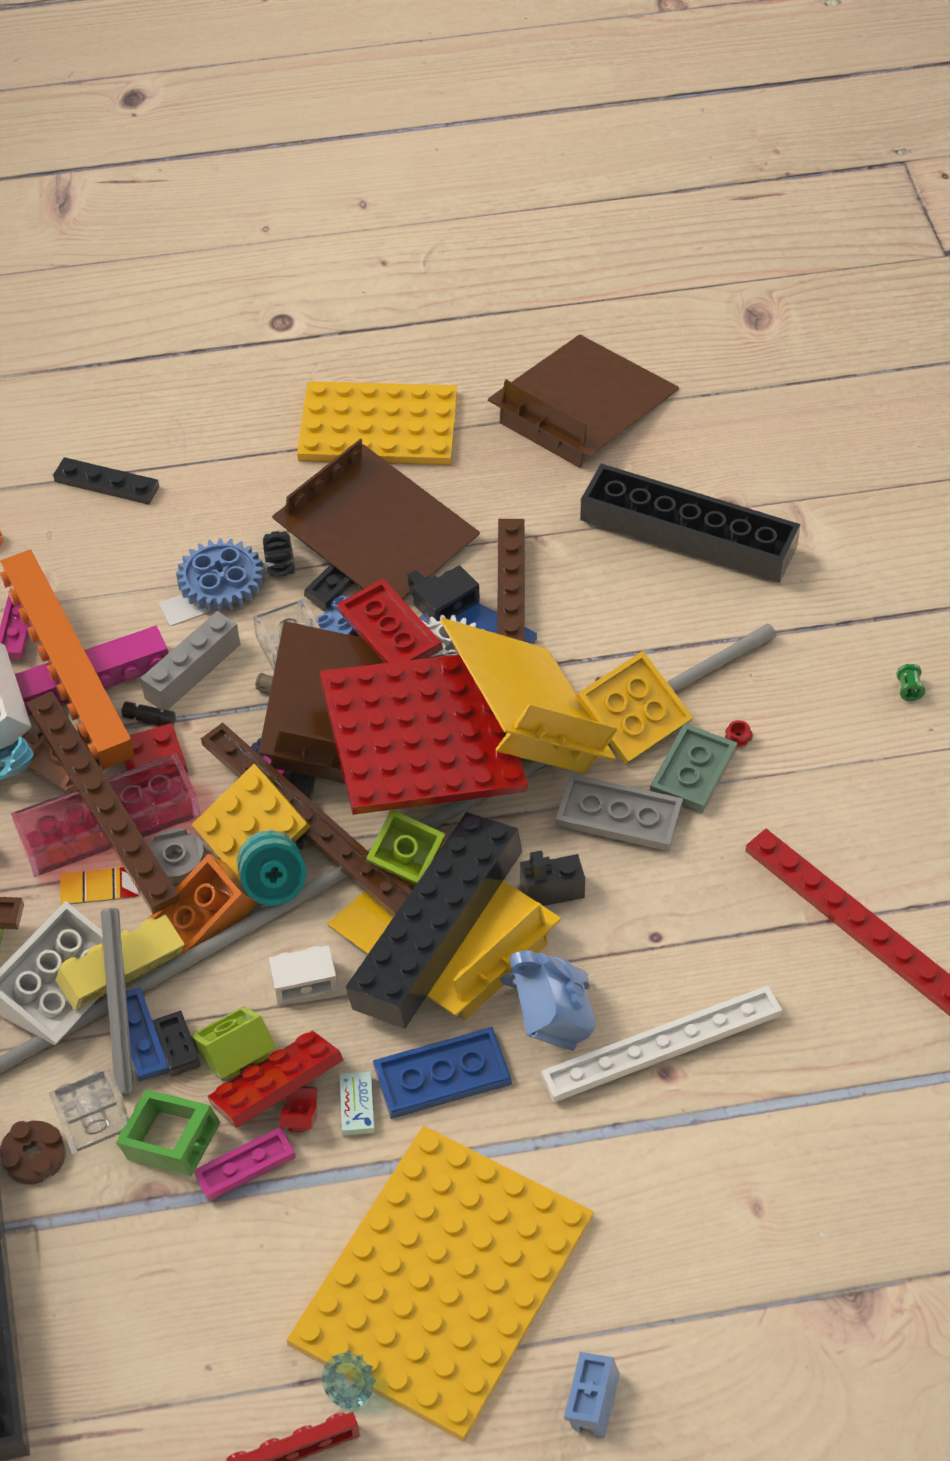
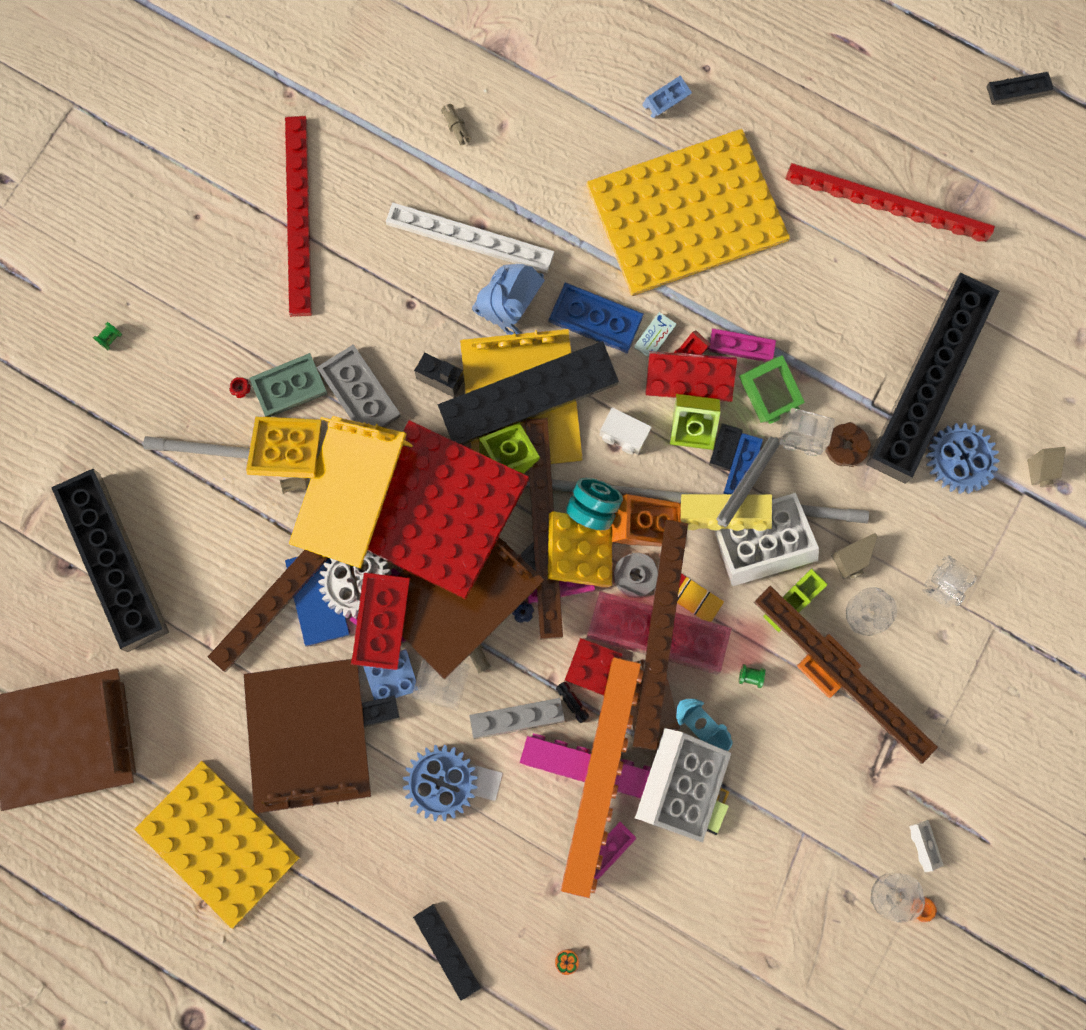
camera: 145 degrees left, 25 degrees up
(278, 553) = (390, 762): black gear -> none
(334, 1381) = (776, 191): clear light blue gear -> none
(444, 595) = (319, 629): black hinge -> none
(808, 1156) = (456, 124): none -> dark tan pin

